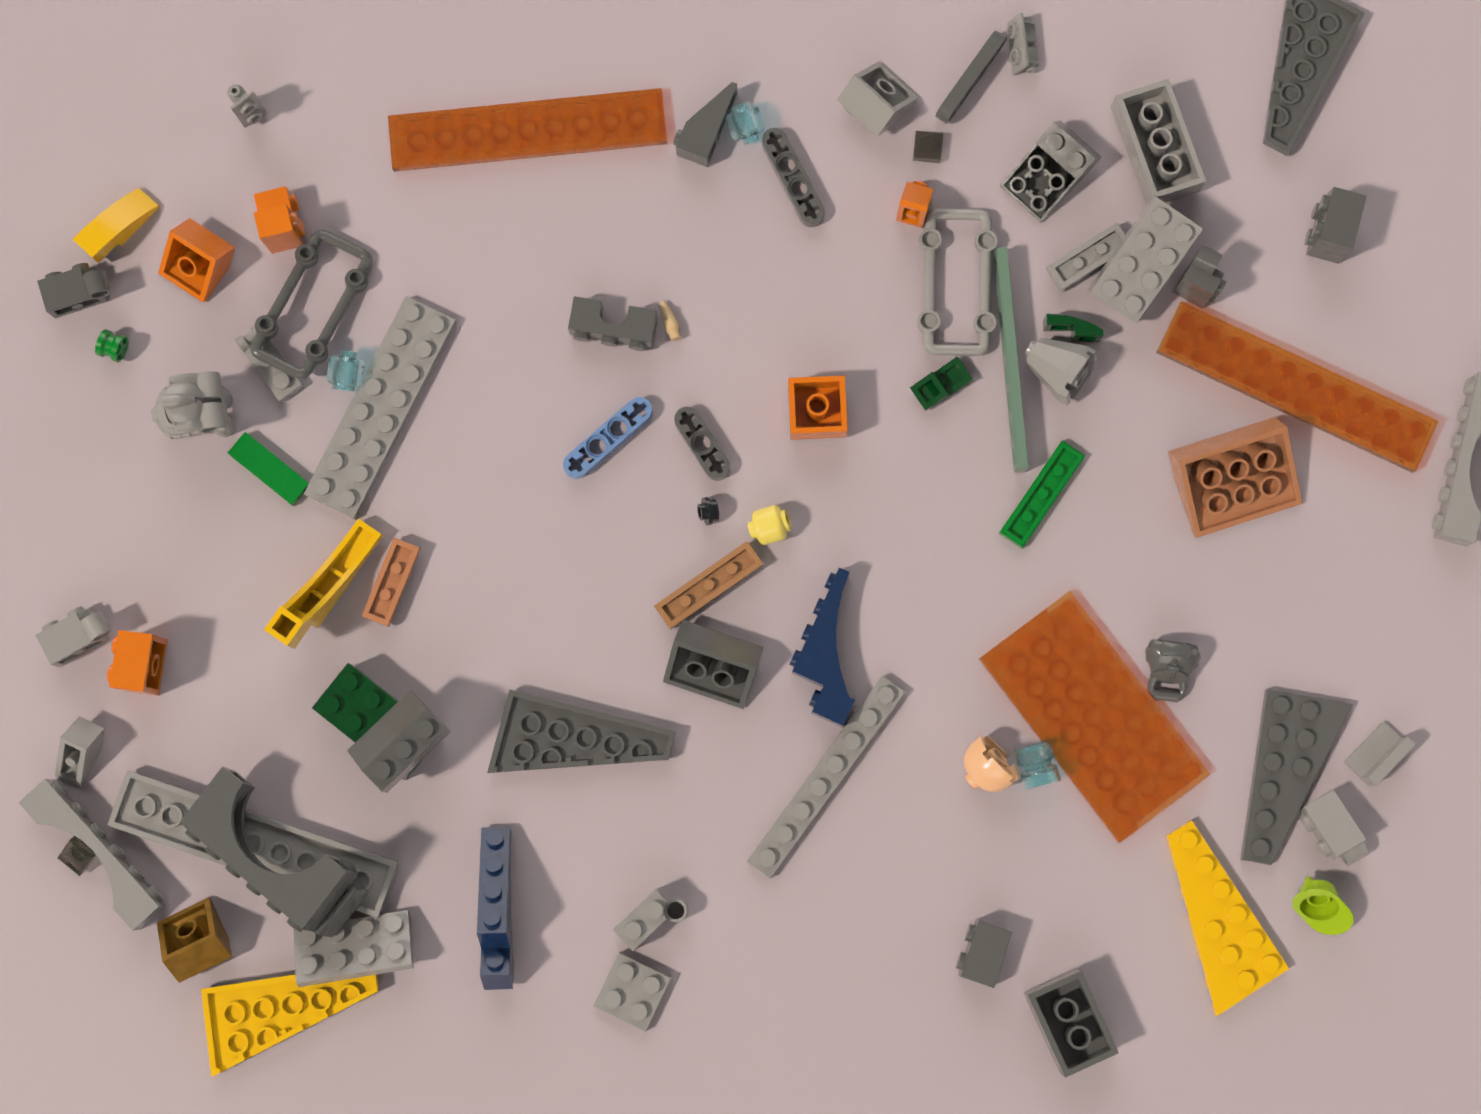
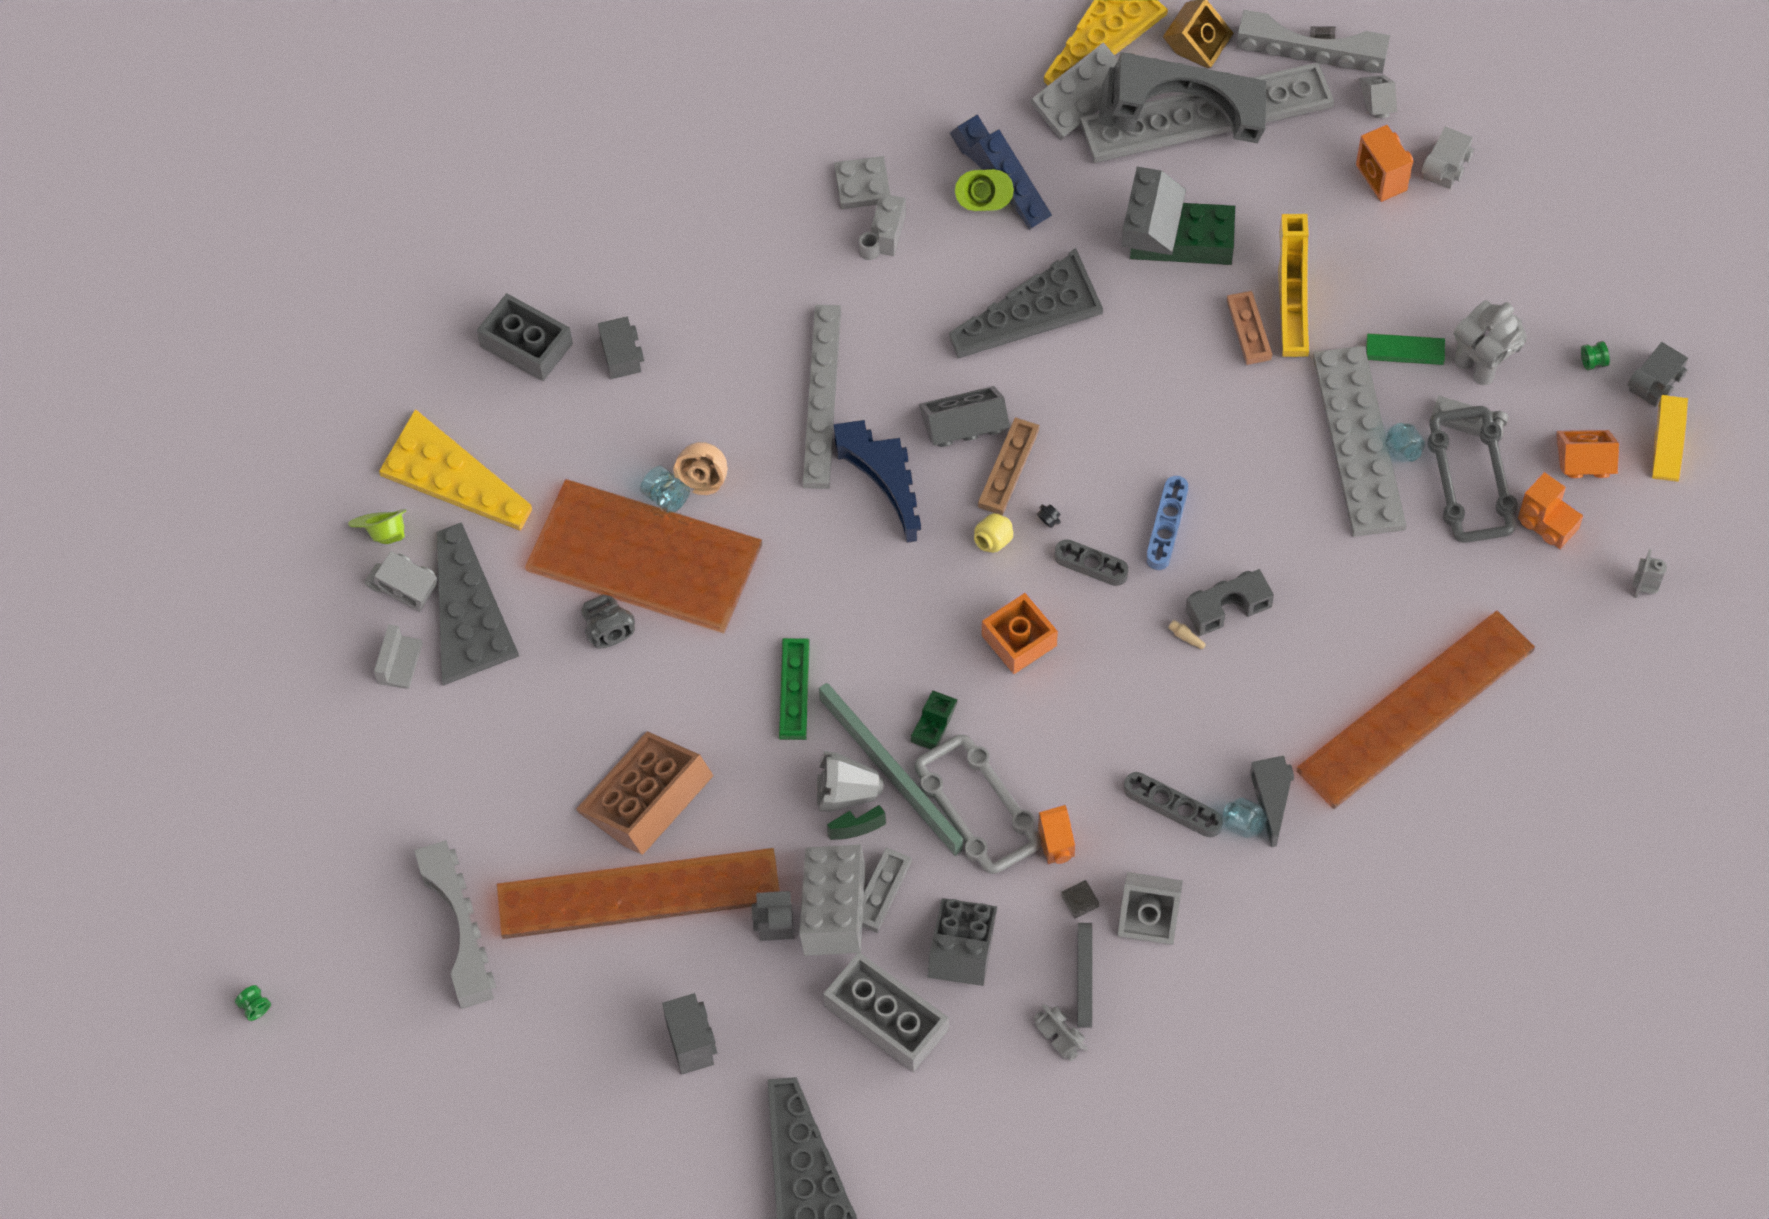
camera: 145 degrees right, 20 degrees down
(529, 891) = (984, 190): none -> lime piece

